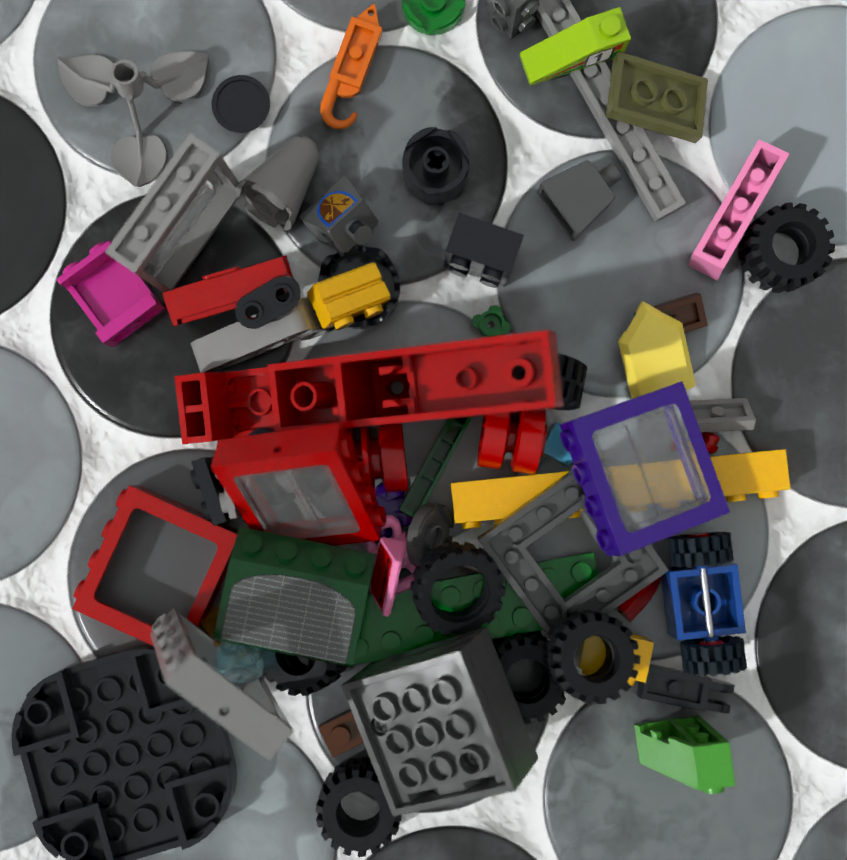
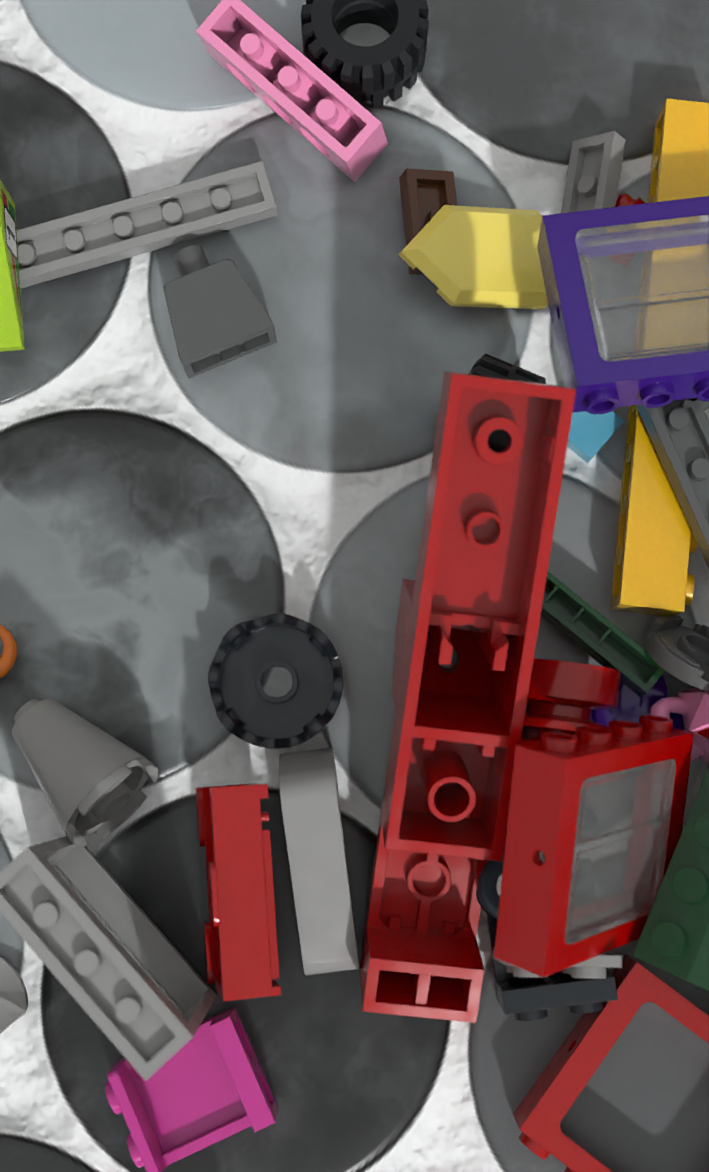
camera: 80 degrees left, 5 degrees down
(267, 302) = (276, 829): black plate -> none
(340, 217) = (161, 684): dark grey torso -> none
(349, 296) = (293, 697): yellow brick -> none
(435, 147) = (86, 510): black brick -> none
(482, 250) = (267, 473): black brick -> none
(492, 315) = (385, 477): green plate -> none
(521, 437) = (590, 480): red wheel -> none
(657, 97) = (92, 166): olive plate -> none

